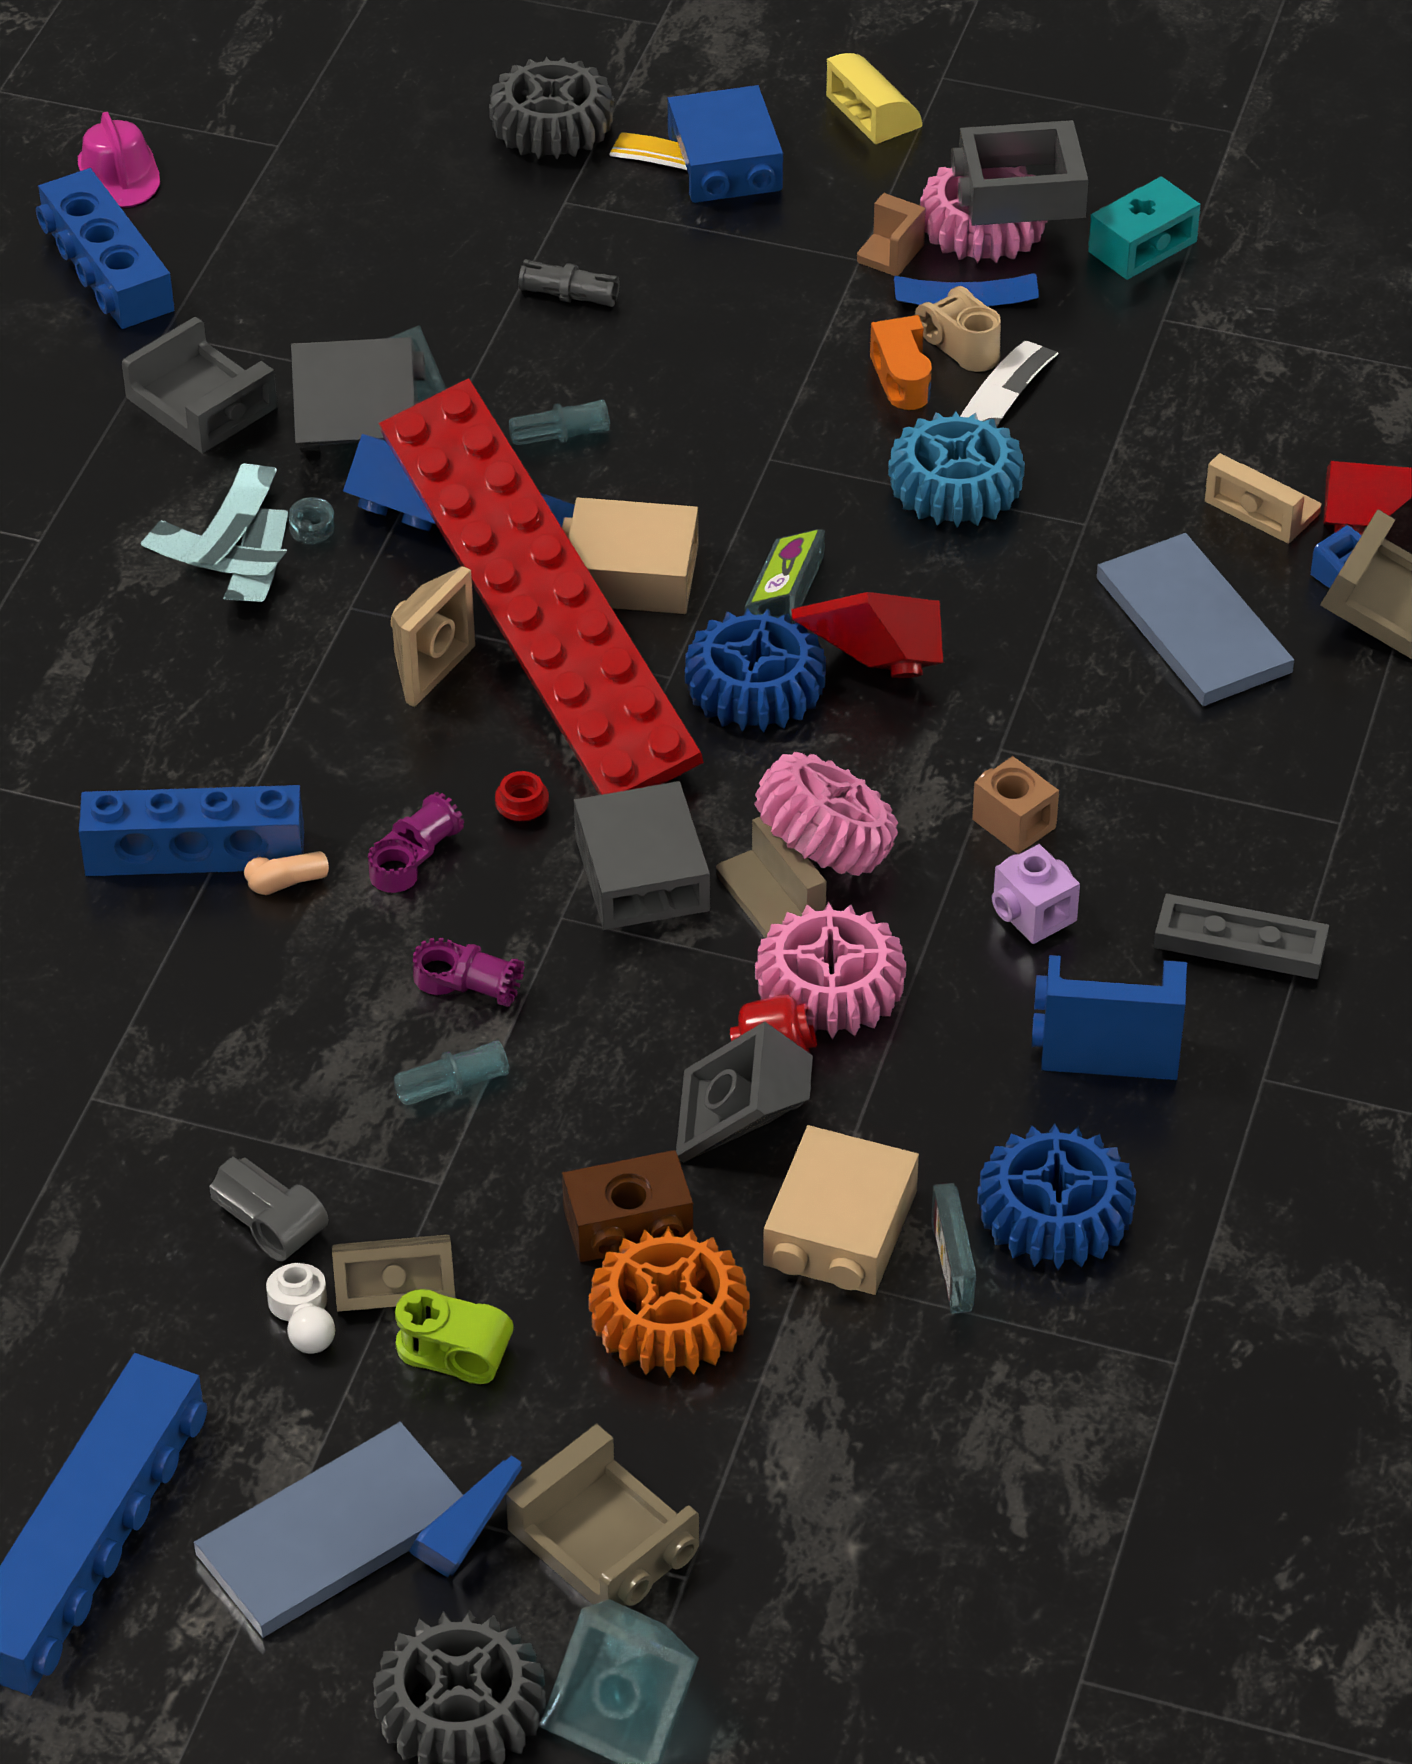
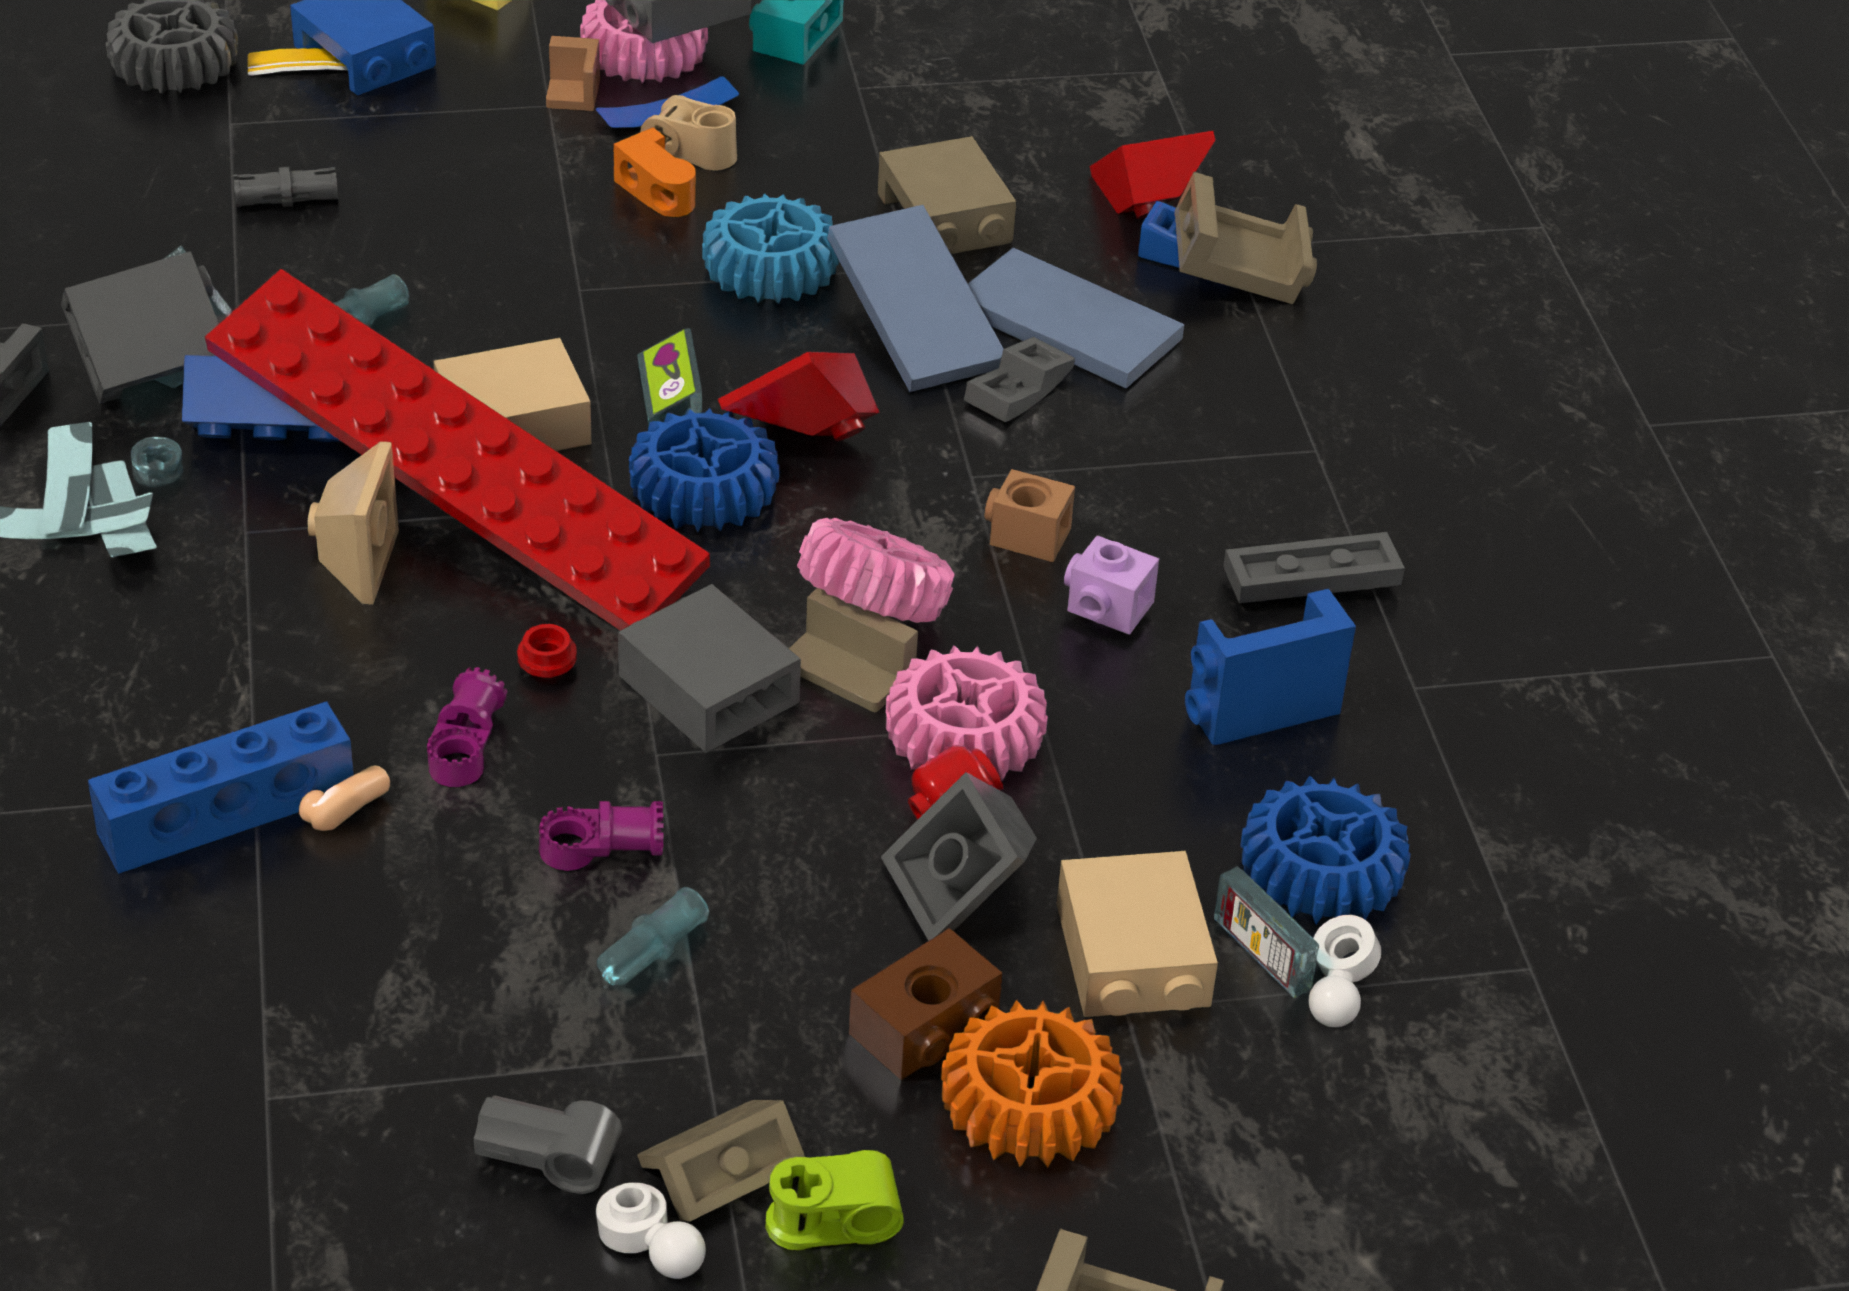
camera: 30 degrees left, 5 degrees down
(1008, 381) = (760, 166): white sticker -> none
(1009, 1291) = (1335, 998): none -> white plate
(1052, 559) = (916, 297): none -> sand blue tile
(1111, 667) = (1023, 379): none -> dark grey slope
(1155, 462) = (956, 188): none -> dark tan panel
(1258, 499) = (1058, 203): tan panel -> none

